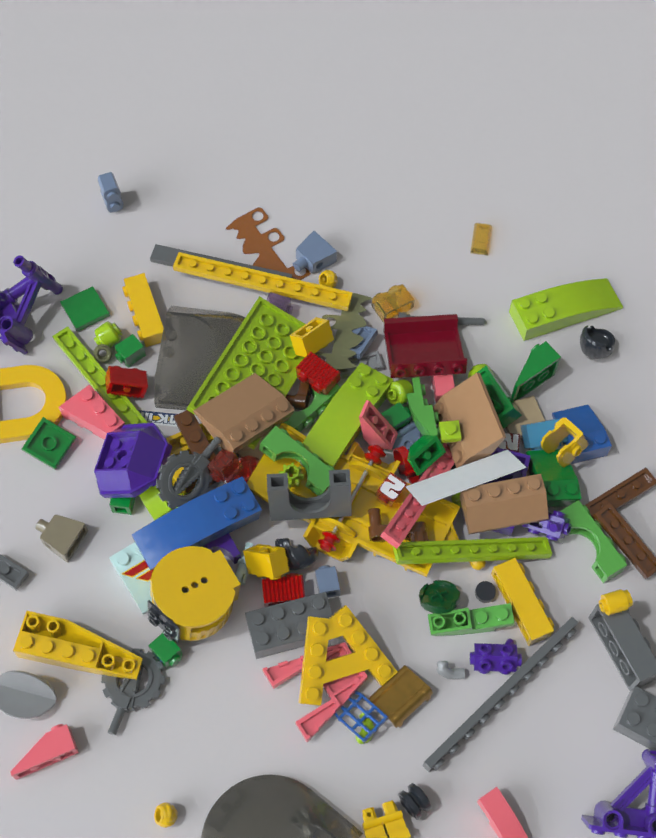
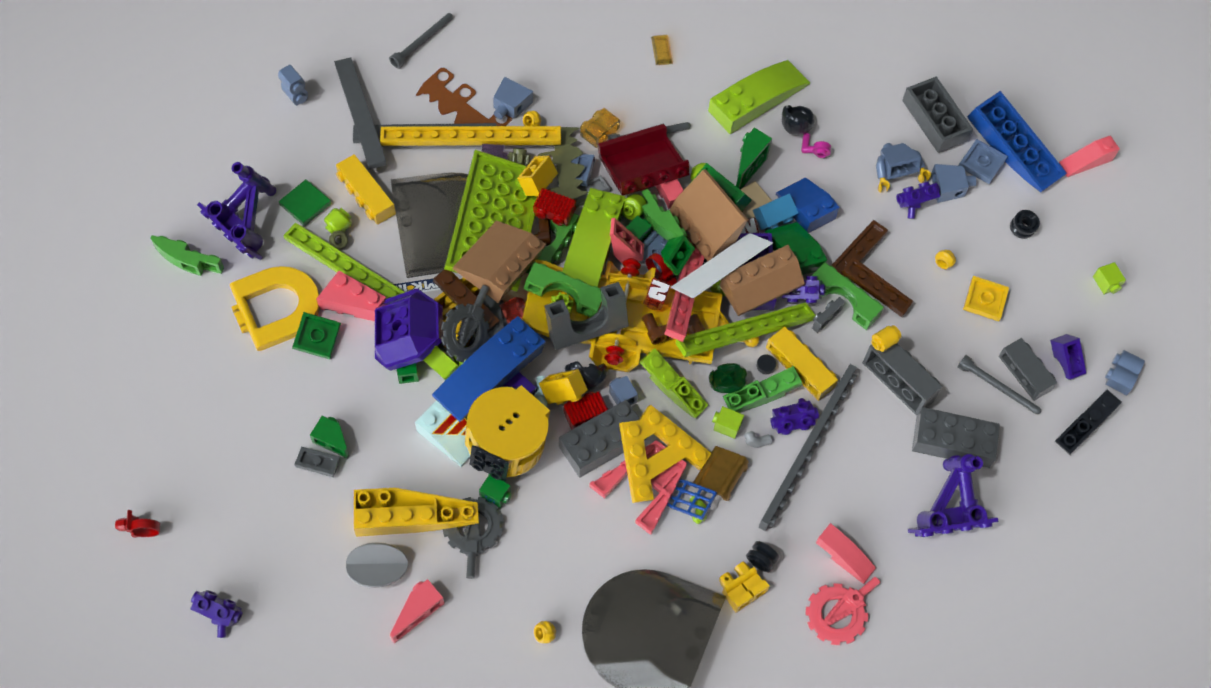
camera: 20 degrees left, 0 degrees up
(26, 548) = (329, 436): none -> green slope
(62, 535) = (359, 415): dark tan torso -> none
(126, 381) = (373, 259): red brick -> none
(129, 351) = (364, 231): green brick -> none
(165, 235) = (360, 113): none -> dark grey tile
(219, 189) = (398, 59): none -> dark grey piece
(225, 466) = (498, 311): clear red brick -> none
(302, 313) = (519, 156): none -> olive gear
(381, 588) = (673, 385): none -> lime slope
(424, 643) = (727, 422): none -> lime brick
(450, 431) = (694, 229): lime plate -> none
(567, 454) = (804, 222): yellow piece -> none
(571, 553) = (831, 311): none -> dark grey plate
(611, 378) = (820, 149): none -> dark pink plate

